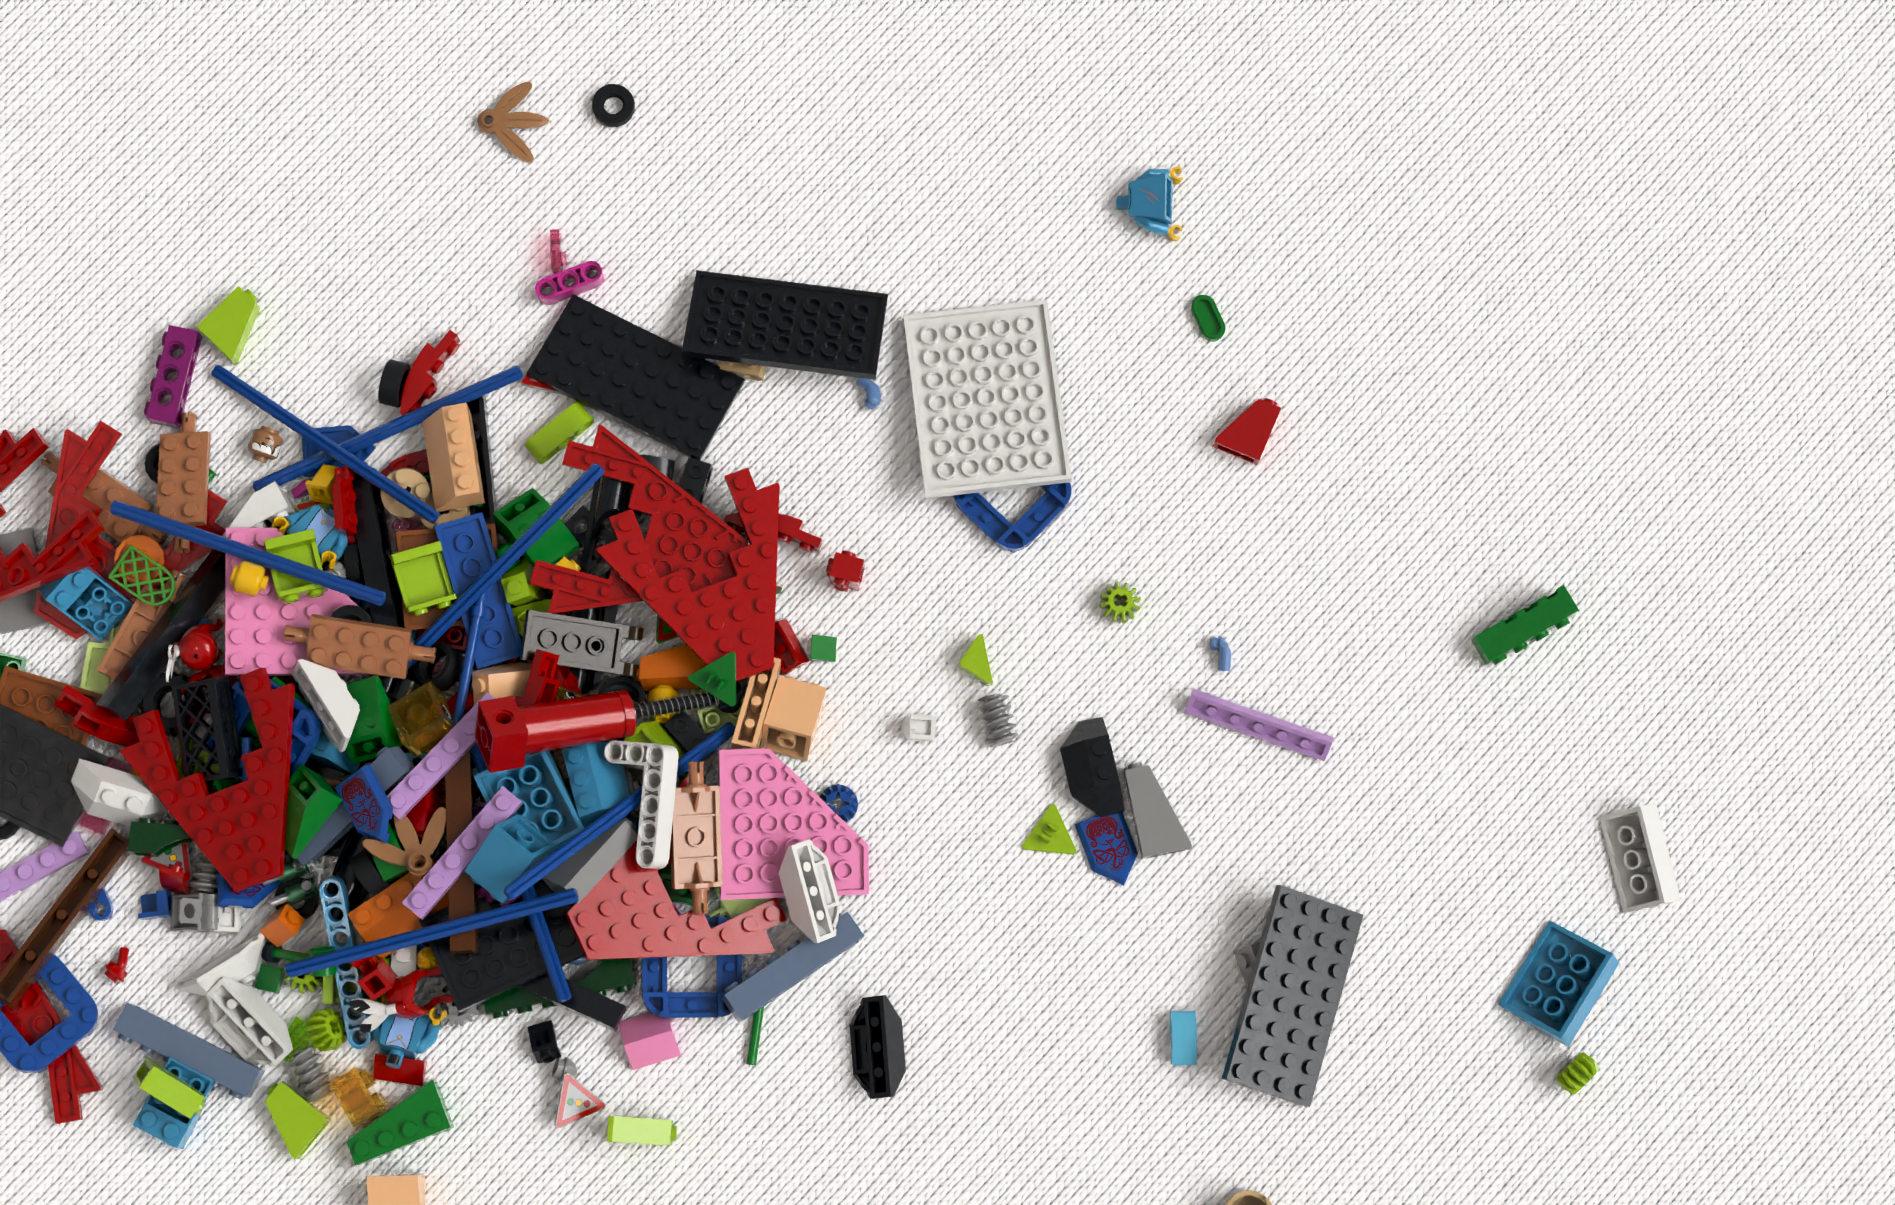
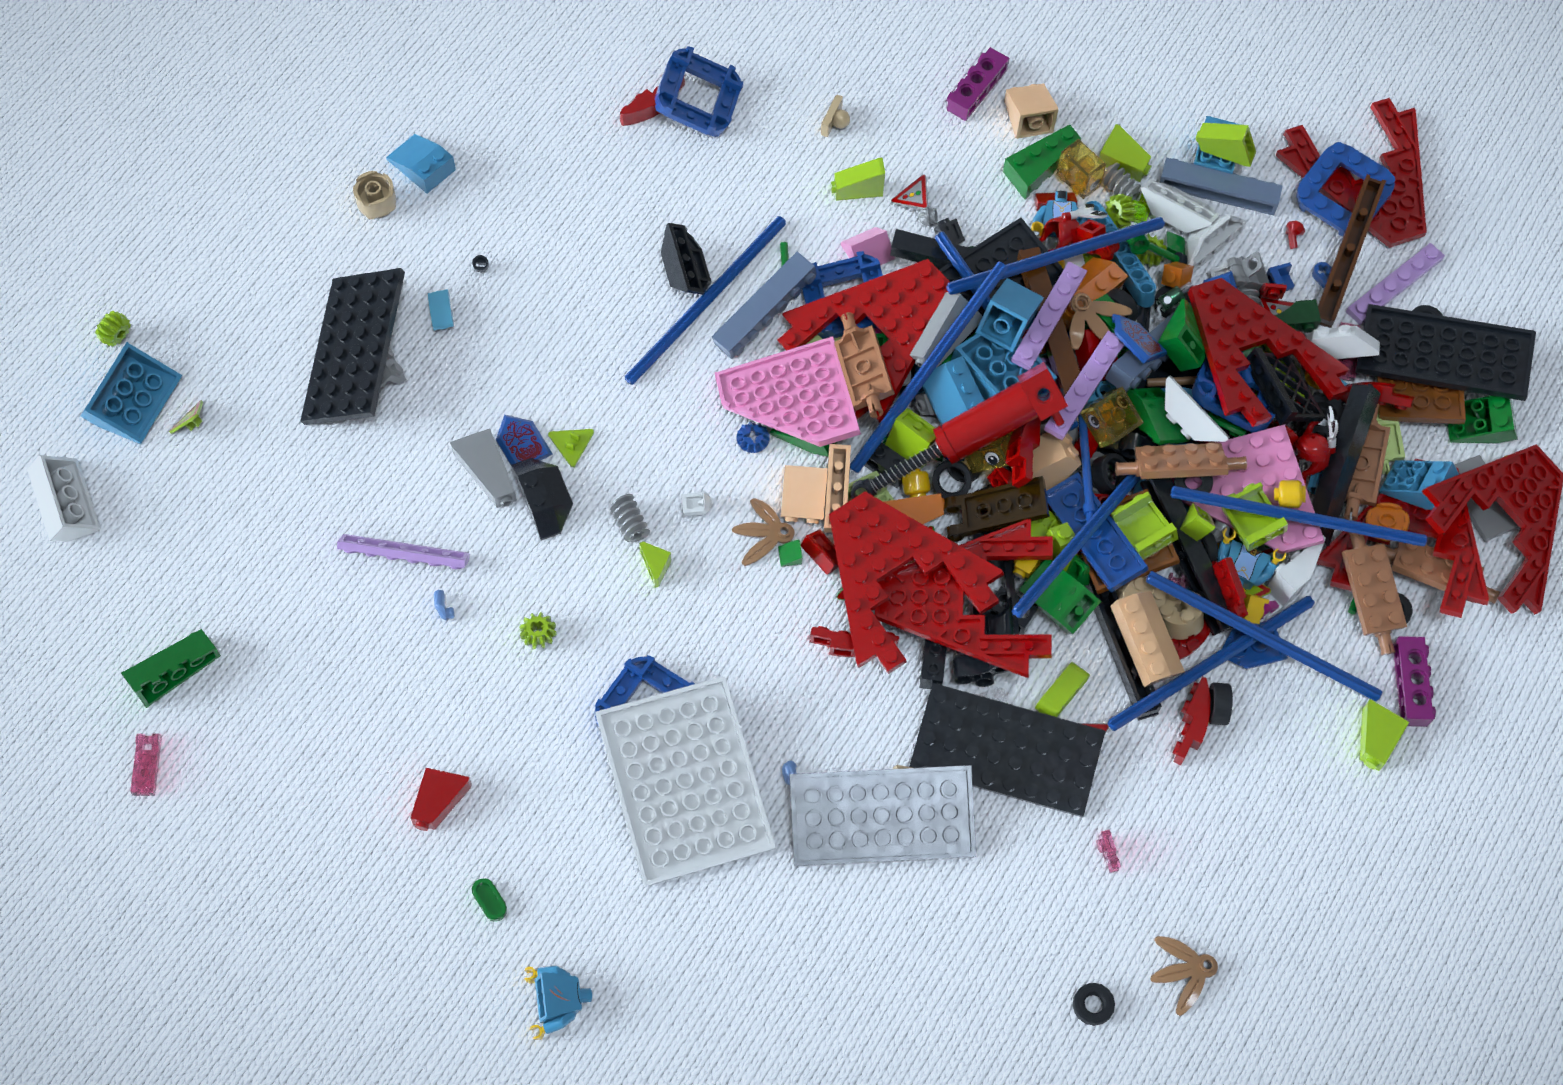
camera: 170 degrees right, 15 degrees down
(122, 561) = (1370, 512): bright green window -> none
(265, 444) = (1314, 637): medium nougat head -> none
(360, 572) = (1197, 523): none -> lime slope
(557, 281) = (1095, 816): dark pink beam -> none
(655, 822) = (902, 384): white beam -> none
(718, 678) = (873, 493): green piece -> none
(810, 891) = (759, 350): white wedge -> none
(845, 571) = (783, 610): red brick -> none
(851, 1007) = (705, 300): none -> blue axle
(855, 683) = (770, 531): none -> medium nougat plant
(1128, 1090) = (480, 260): none -> black hinge
(1491, 939) = (190, 419): none -> lime piece
(1556, 525) = (146, 765): none -> clear pink plate

